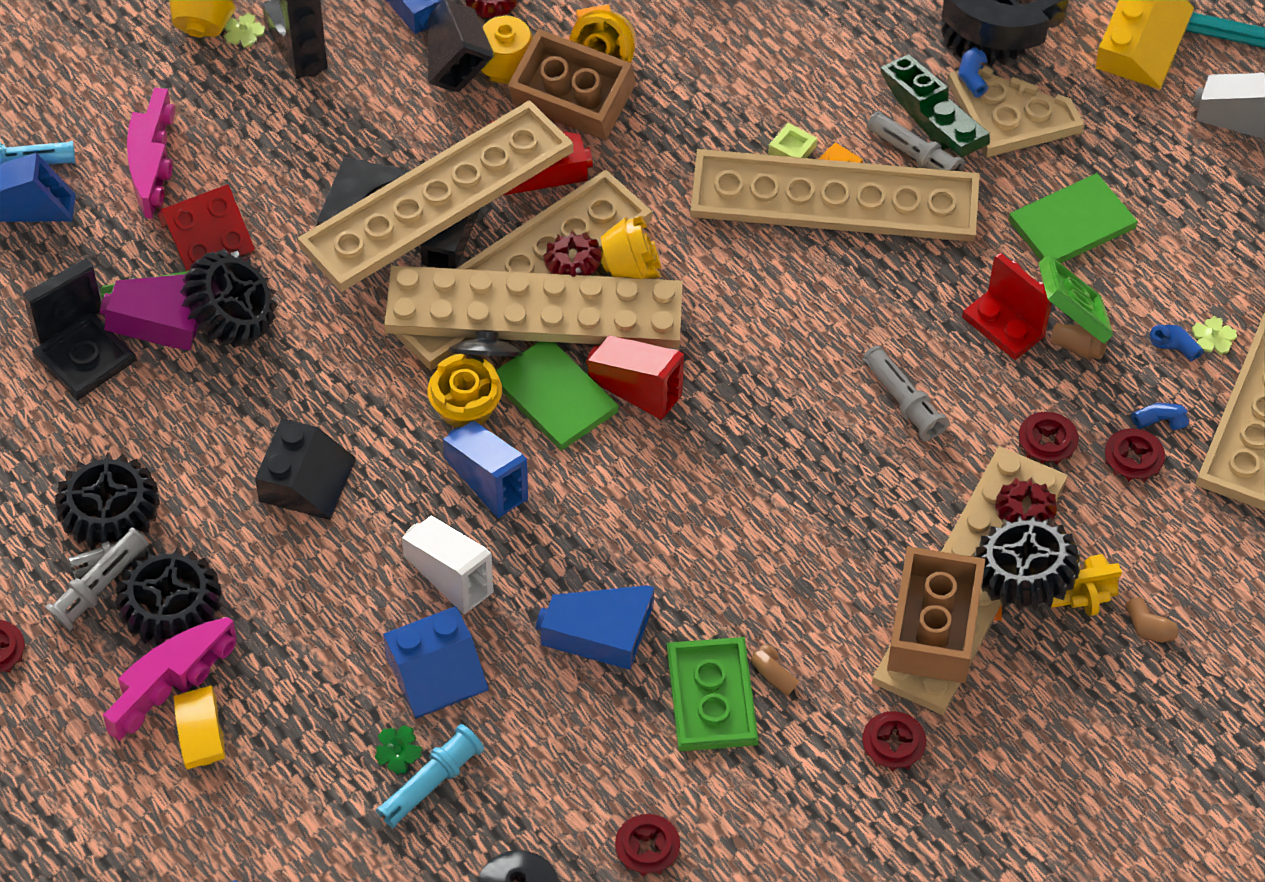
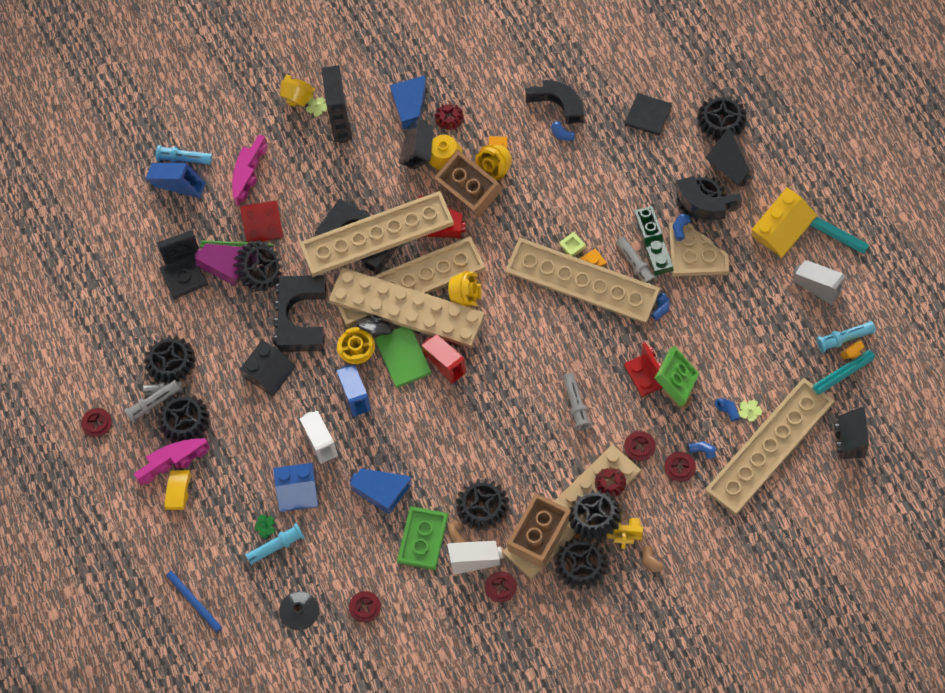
camera: 25 degrees right, 10 degrees up
(328, 404) = (291, 291): none -> black arch
(586, 260) = (439, 289): dark red gear -> none
(805, 622) = (476, 489): none -> black gear
(823, 696) = (474, 556): none -> white slope
(991, 207) = (662, 307): none -> blue arm
(1011, 642) = (593, 574): none -> black gear
(1073, 220) = (702, 325): bright green tile -> none

